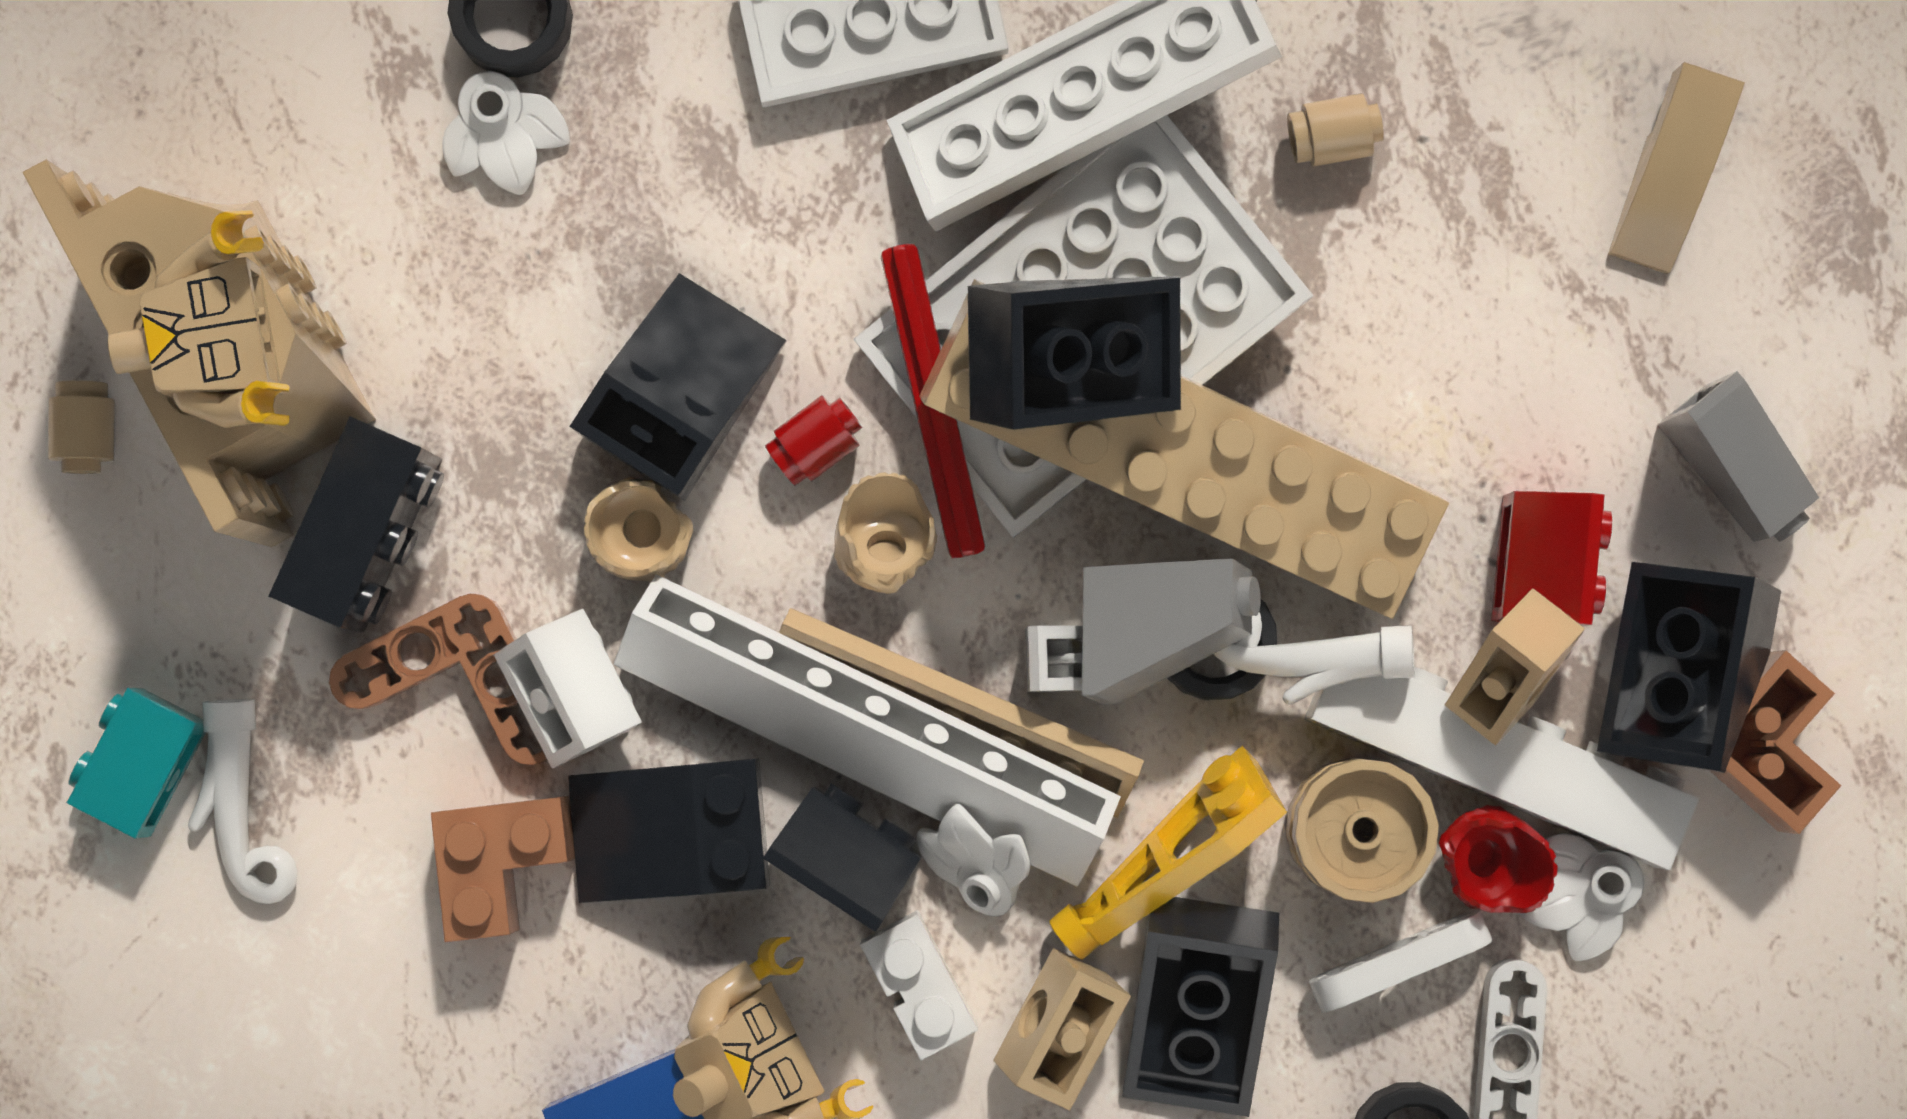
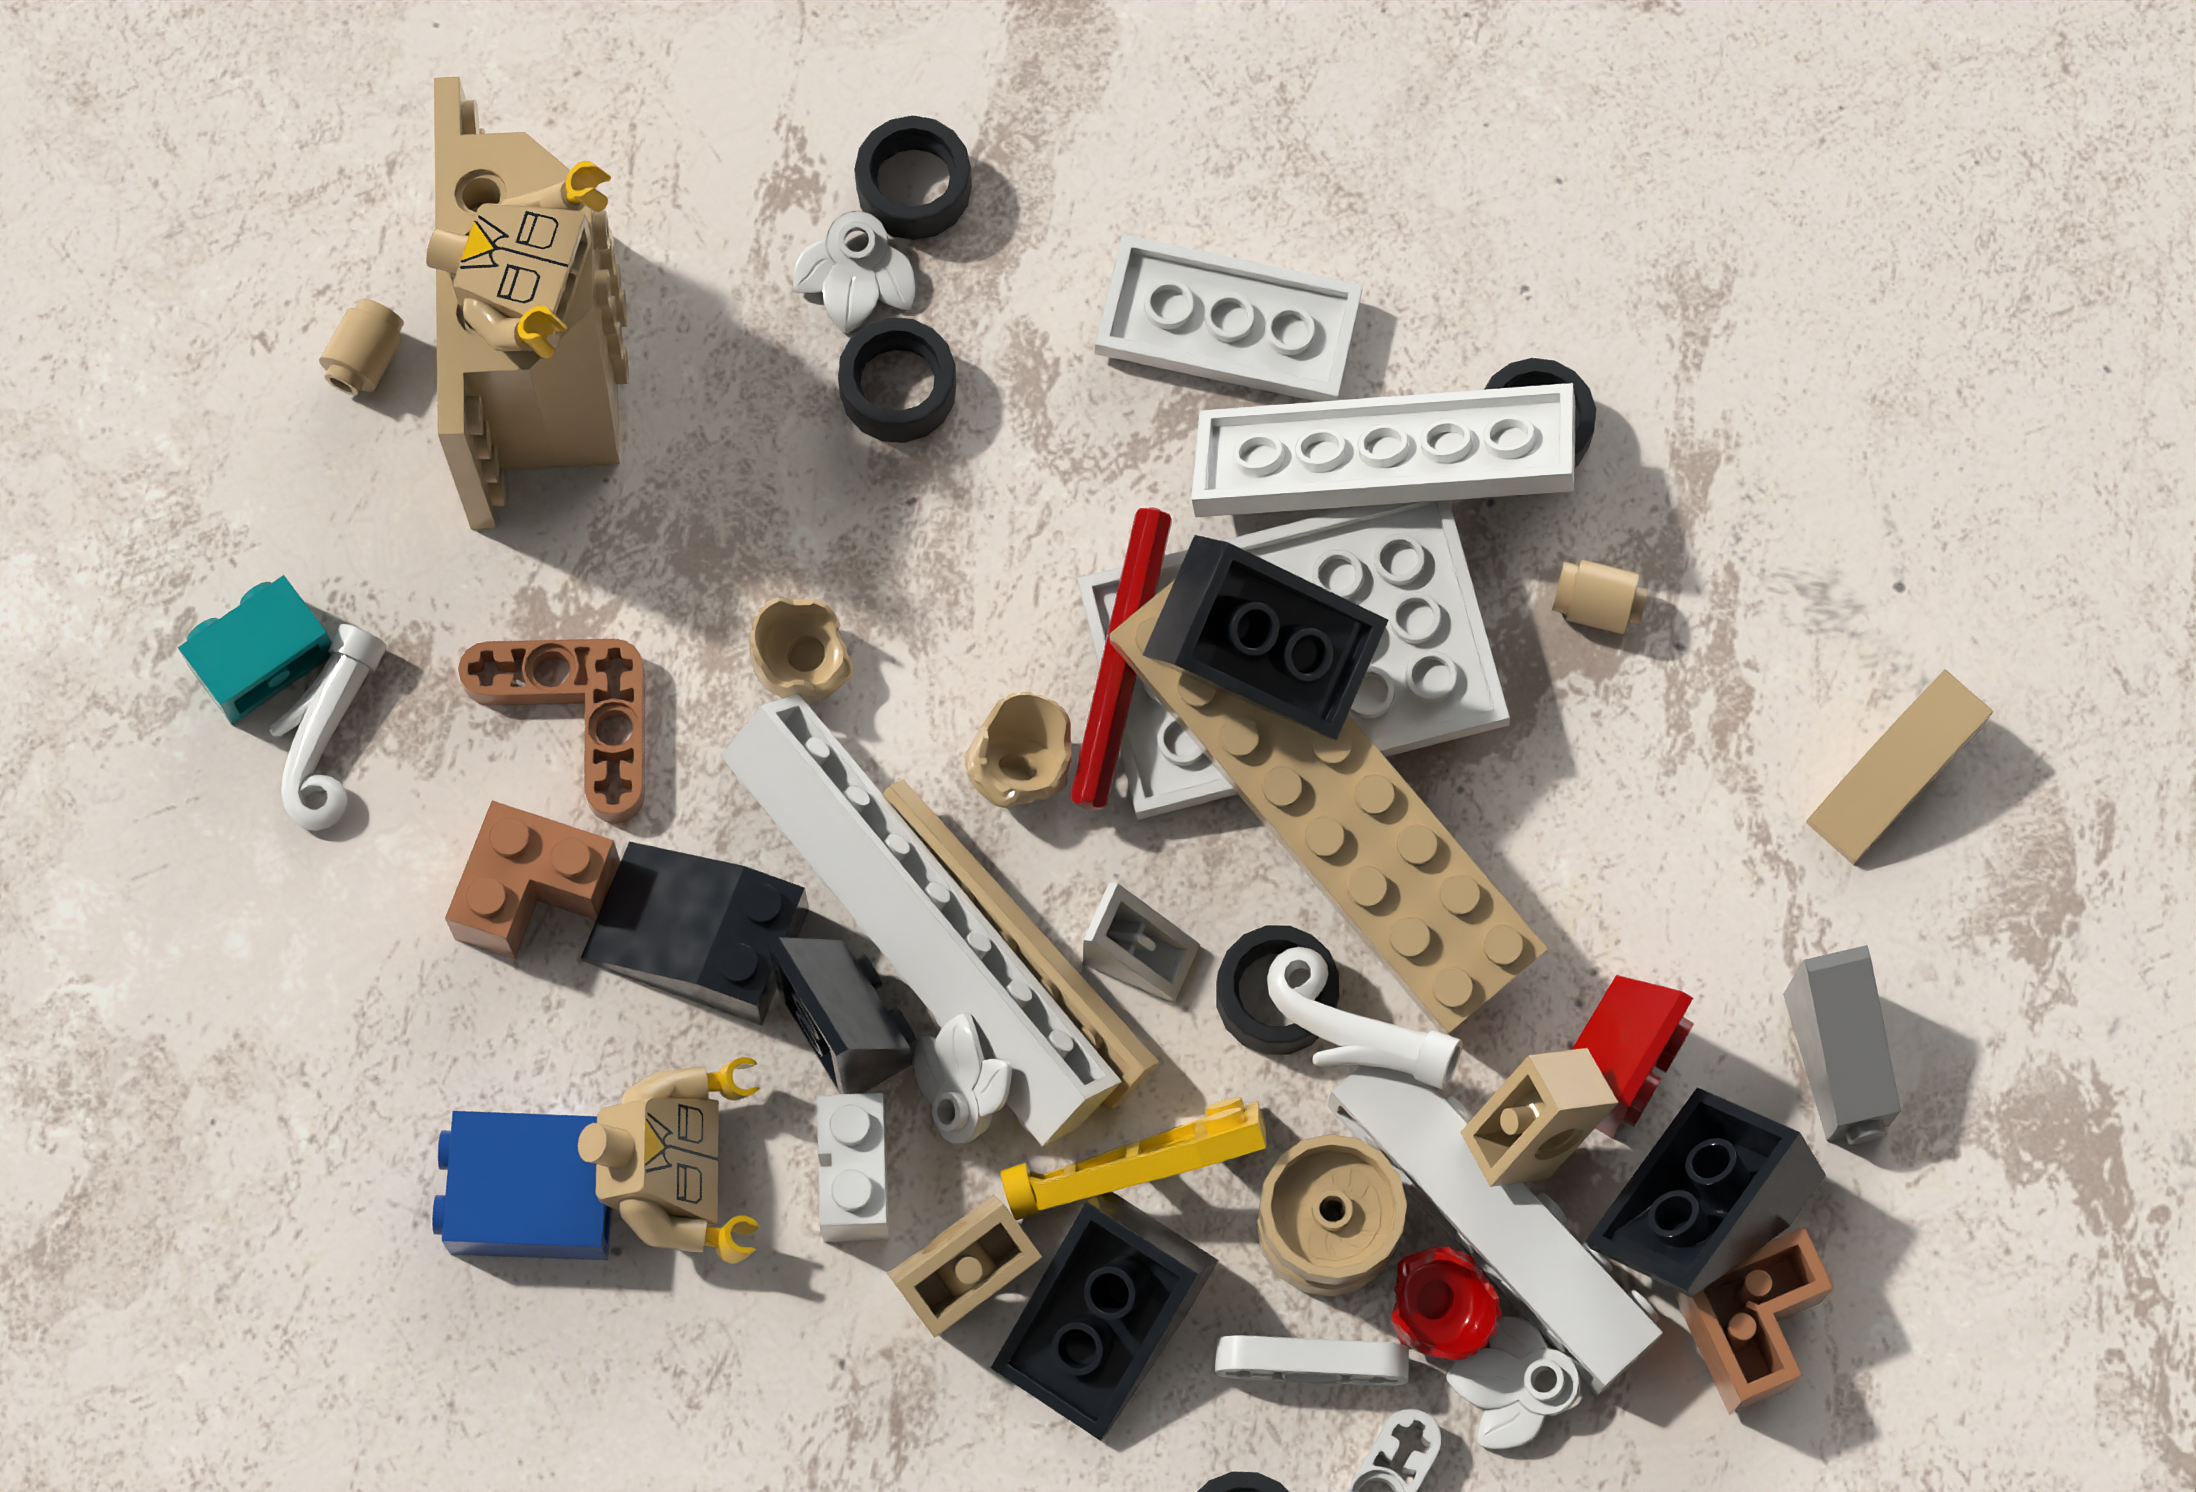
camera: 30 degrees right, 15 degrees down
(358, 527) = (557, 531): black brick -> none
(567, 687) = (669, 756): white brick -> none
(595, 173) = (899, 335): none -> black tyre
(678, 386) = (897, 549): black slope -> none
(814, 439) = (999, 649): red brick -> none
(1160, 620) = (1231, 934): light grey slope -> none

